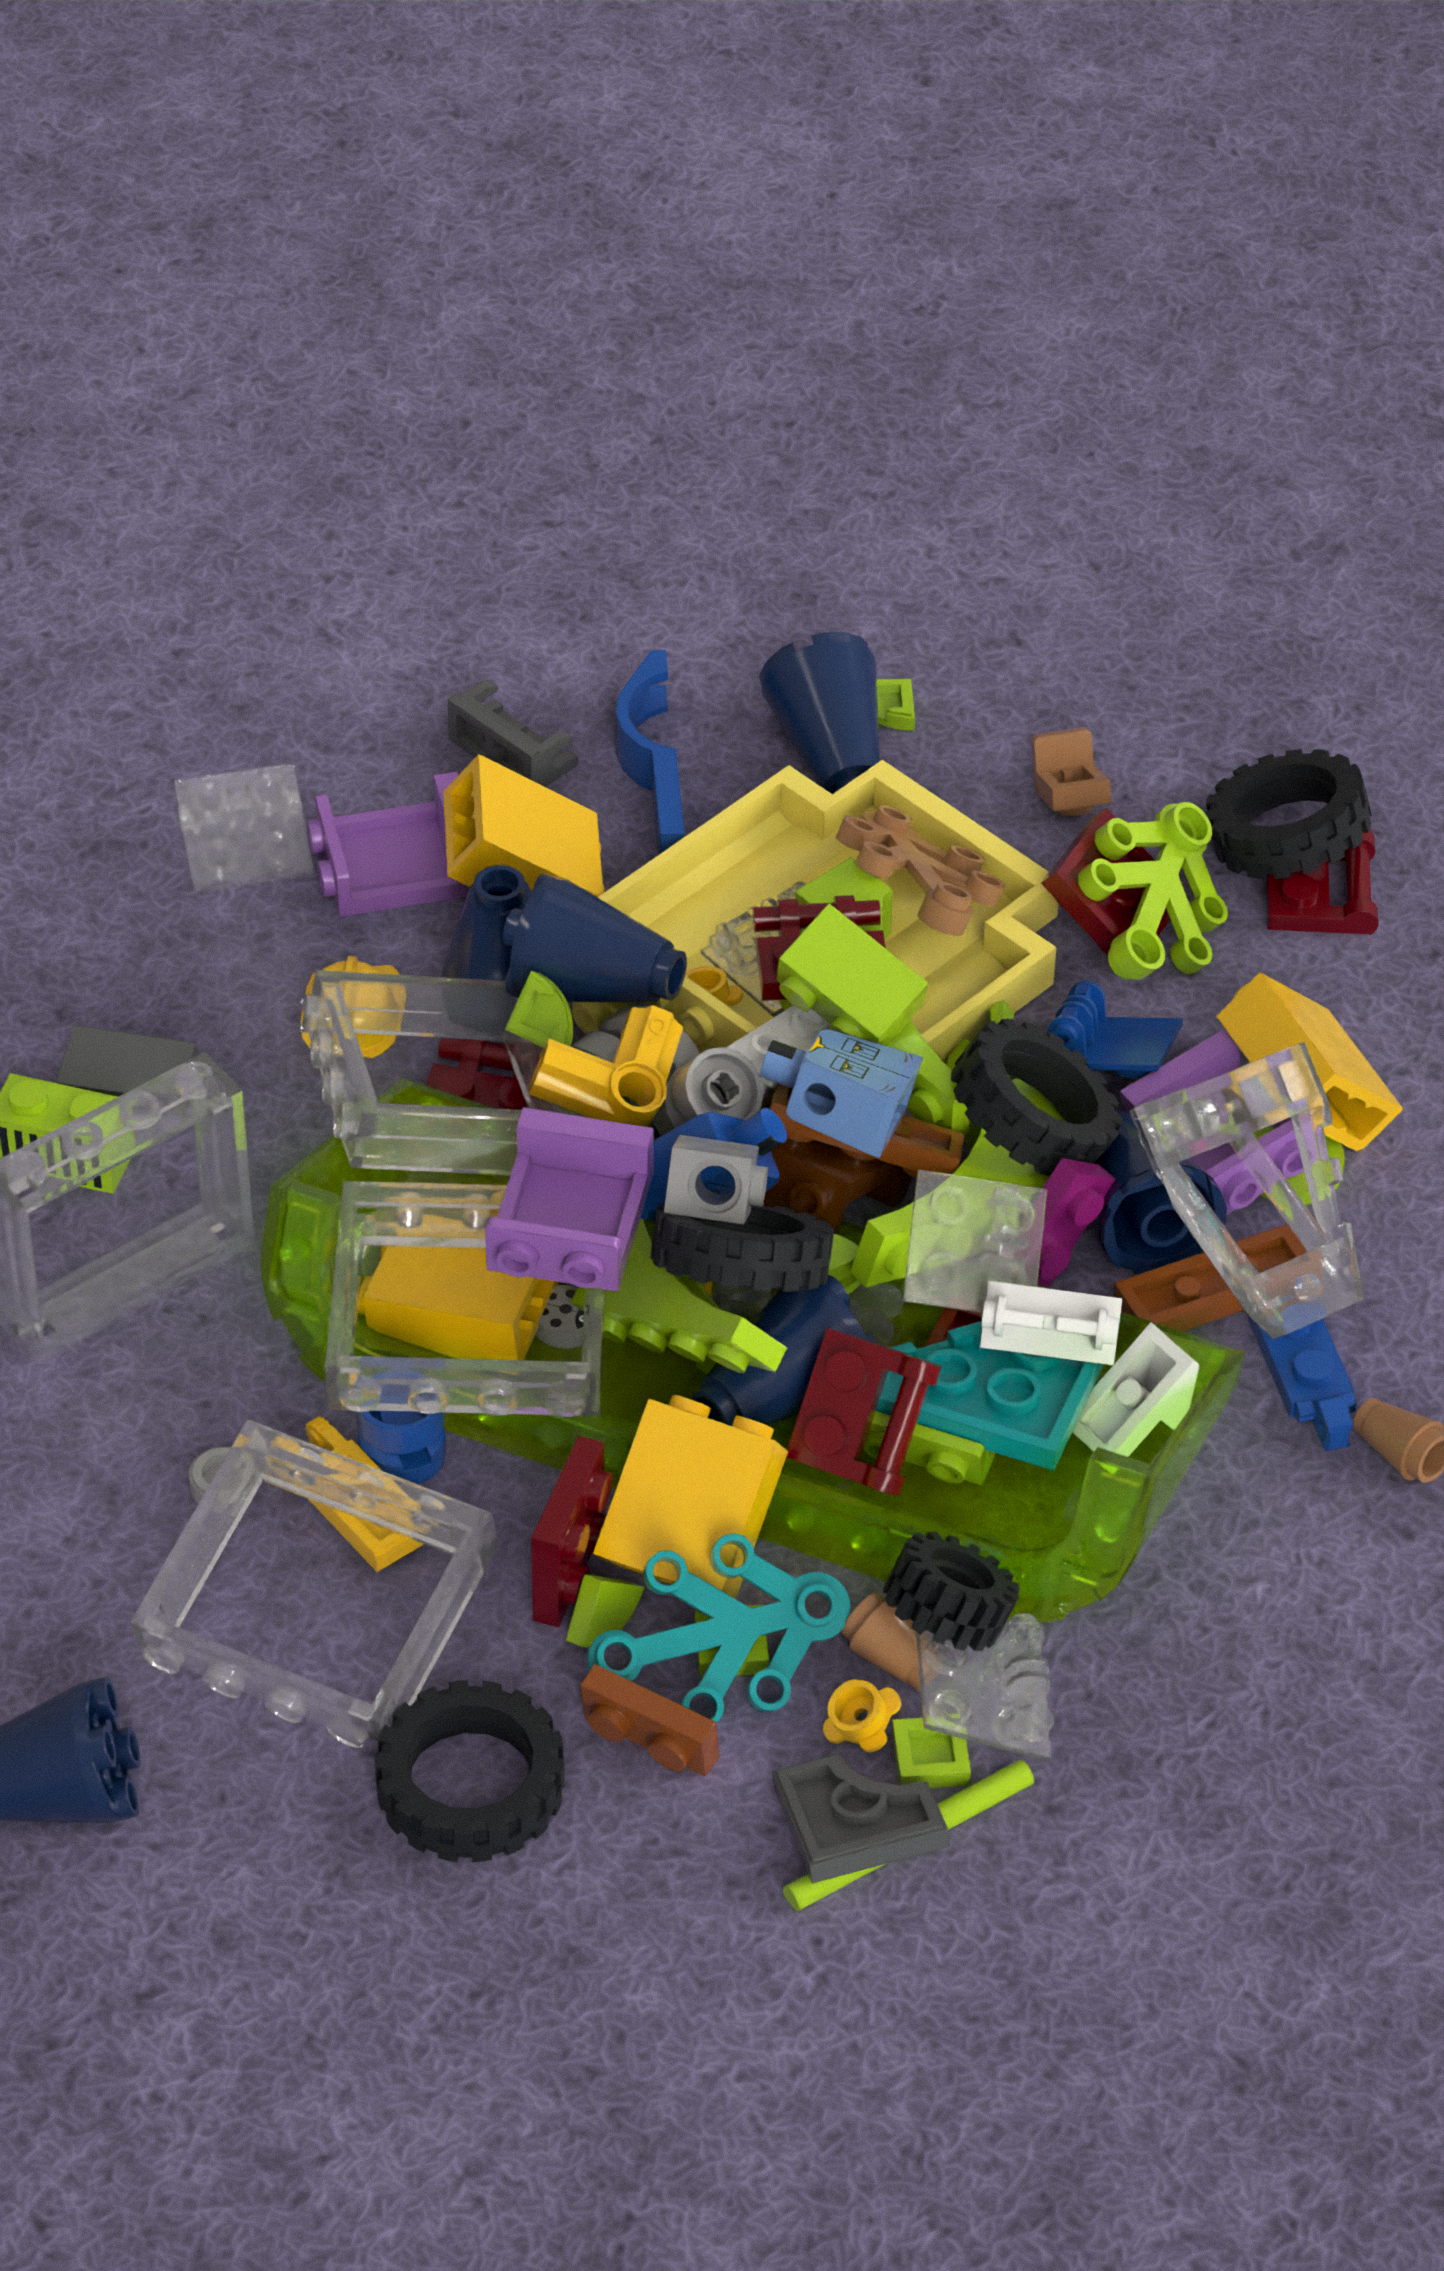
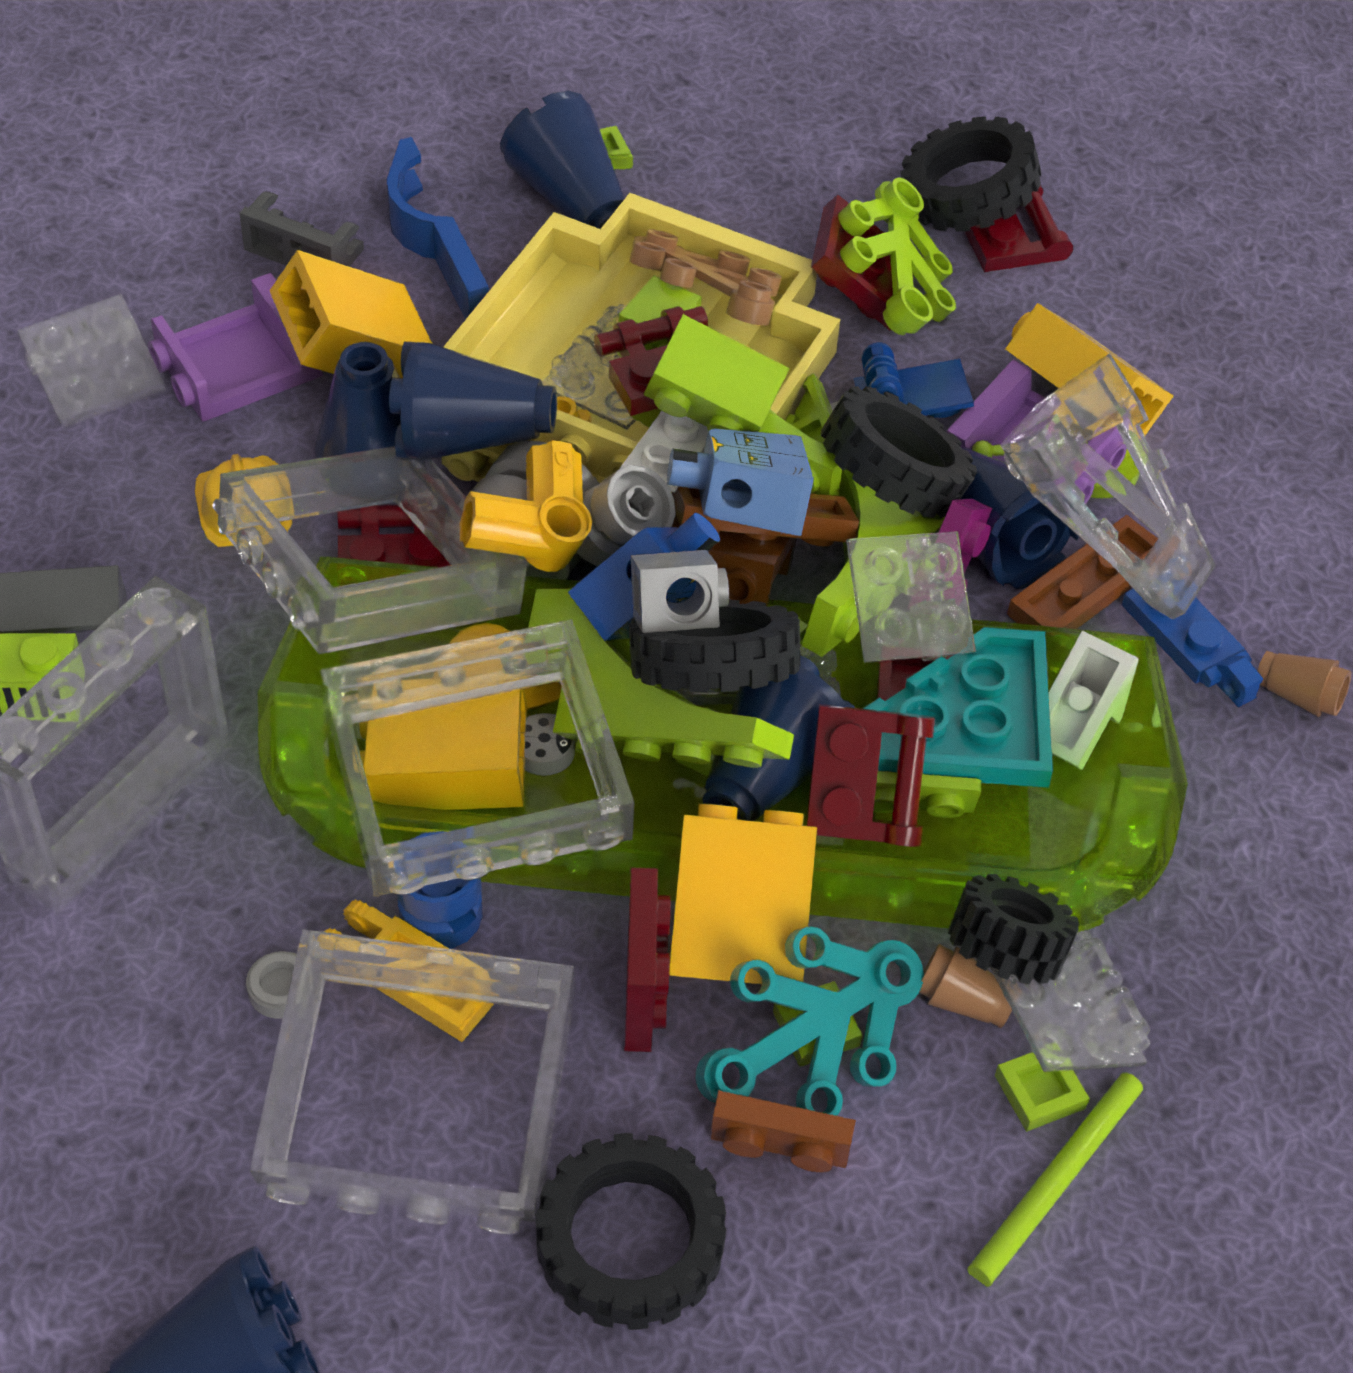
camera: 20 degrees left, 5 degrees up
(541, 1013) = (444, 470): lime tile -> none
(571, 1200) = (548, 641): medium lavender panel -> none
(601, 1607) = (689, 1026): lime tile -> none
(850, 1701) = (956, 1051): yellow plate -> none
(855, 1822) = (1006, 1181): dark grey tile -> none
(1050, 1322) = (1001, 651): white hinge -> none
(1066, 772) = (775, 178): medium nougat bracket -> none

